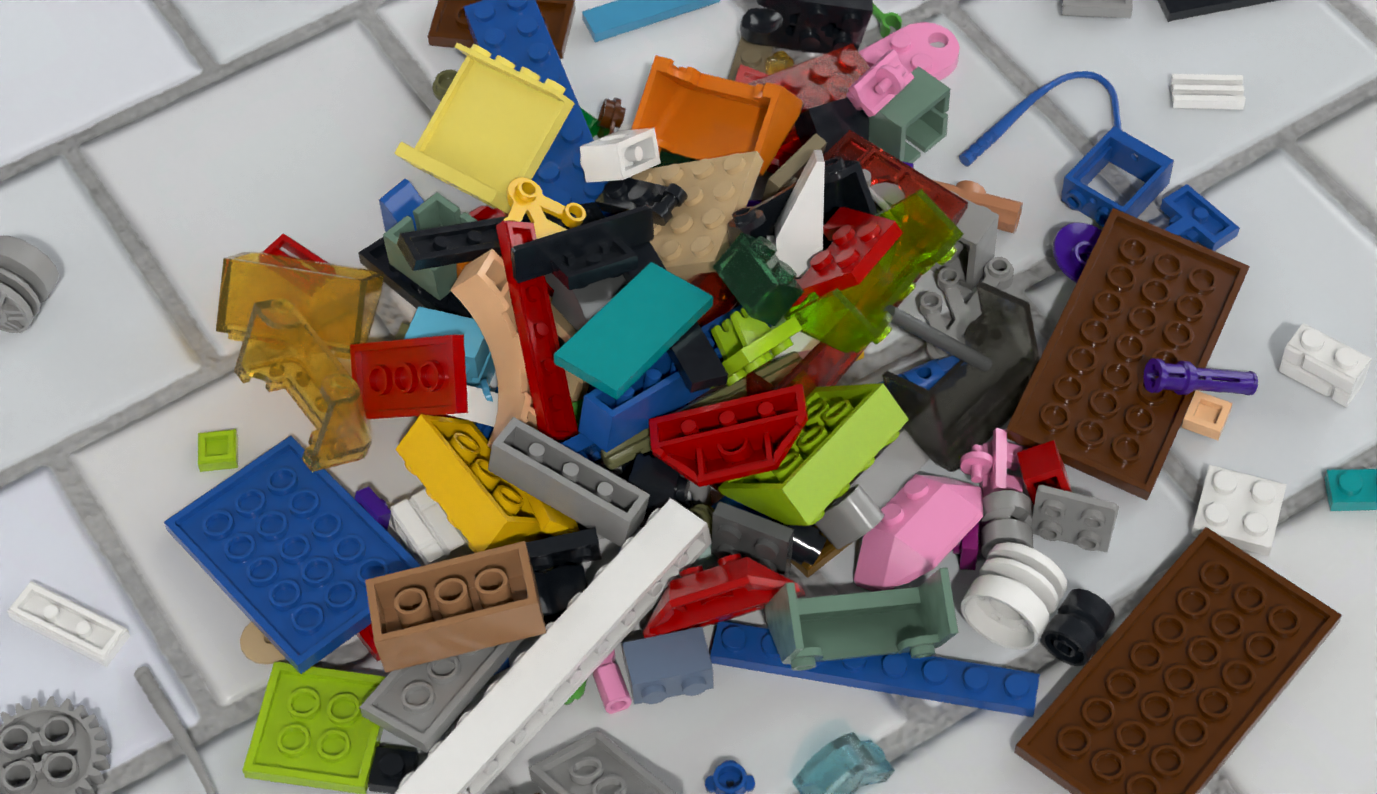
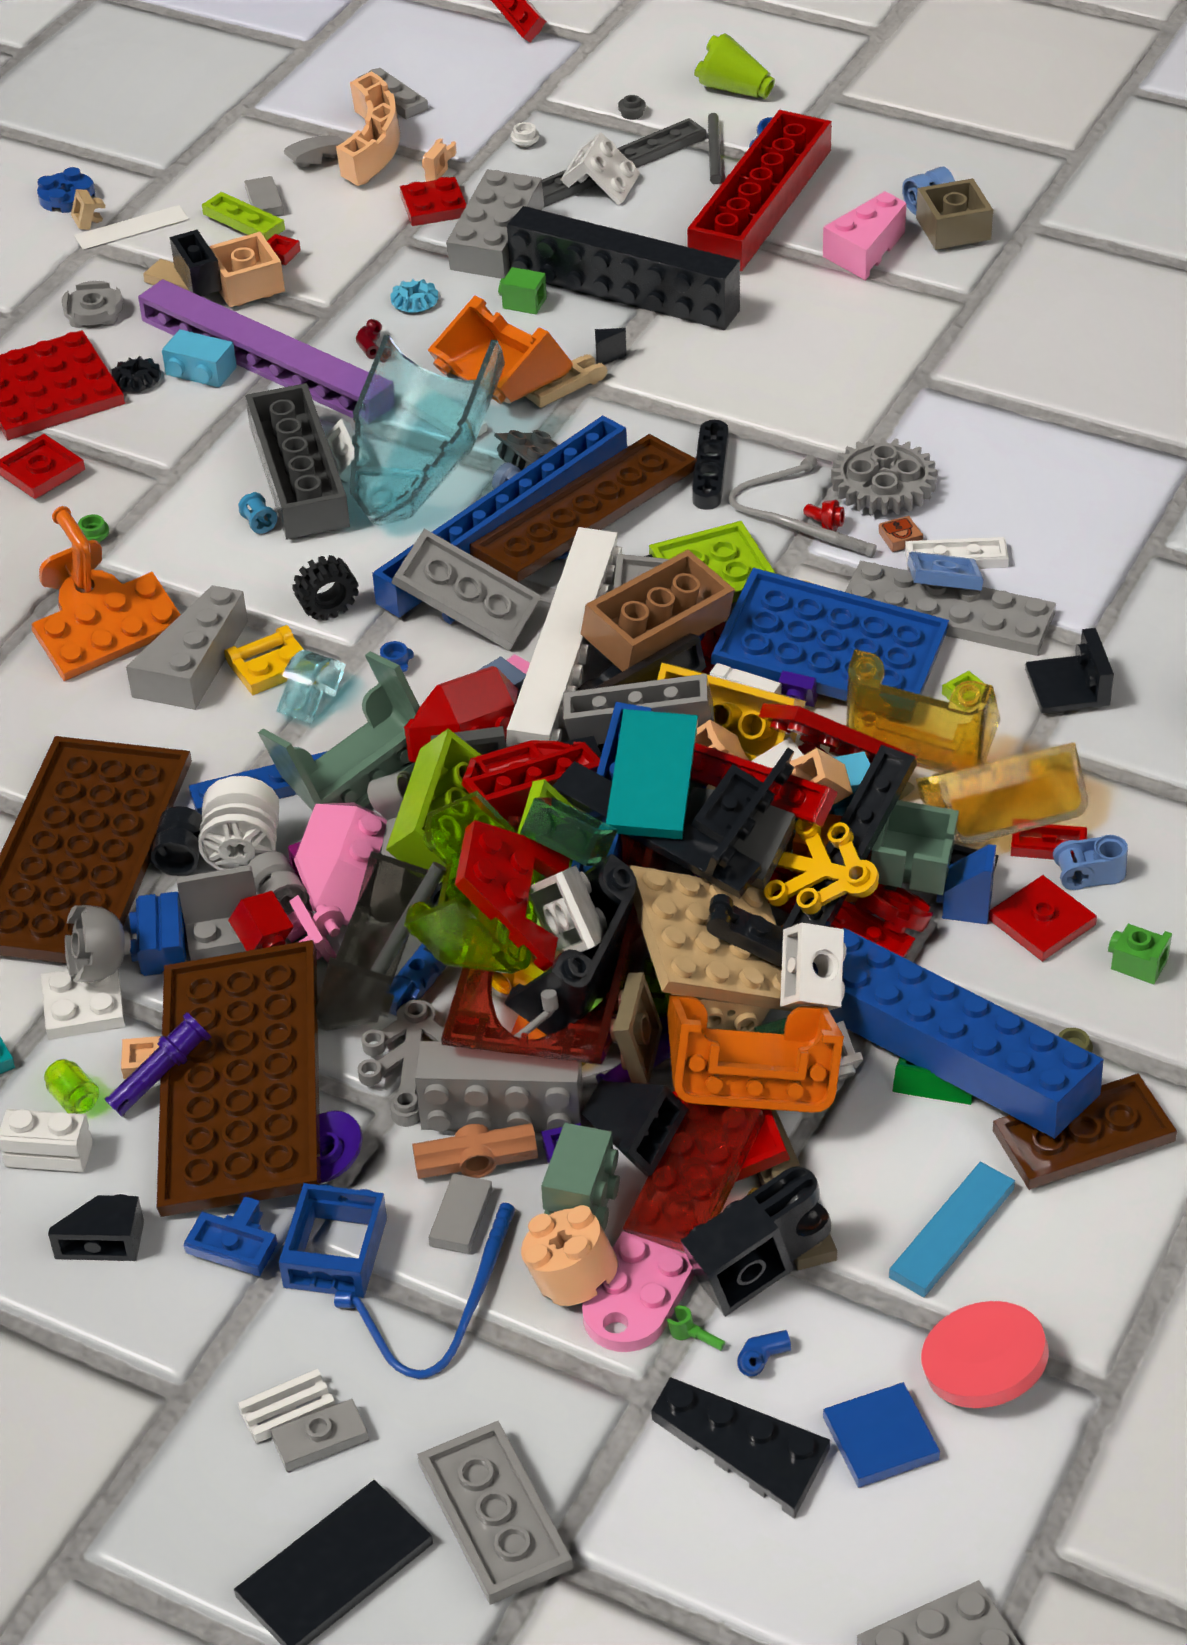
camera: 150 degrees right, 10 degrees down
(95, 680) = (898, 531): none -> nougat tile
(114, 577) = (945, 571): none -> medium blue tile
(119, 401) = (1073, 680): none -> black bracket
(143, 560) = (973, 615): none -> light grey plate
(145, 731) = (830, 515): none -> red plate
(289, 215) = (1093, 862): none -> medium blue piece
(329, 126) = (1139, 952): none -> bright green brick
(358, 196) = (1042, 917): none -> red plate
(489, 127) = (970, 959): light yellow panel -> none
(610, 116) = (871, 1047): reddish brown plate -> none
(879, 84) = (607, 1136): bright pink hips -> none
(957, 65) = (568, 1255): none -> light nougat brick
(1005, 168) = (460, 1213): none -> light grey tile
(1139, 534) = (159, 932): none -> blue brick
(1191, 60) = (319, 1435): none -> light grey plate
(1215, 506) = (95, 944): none -> light grey cylinder
(1283, 412) = (71, 1086): none -> clear neon green brick
(1303, 270) = (100, 1230): none -> black slope

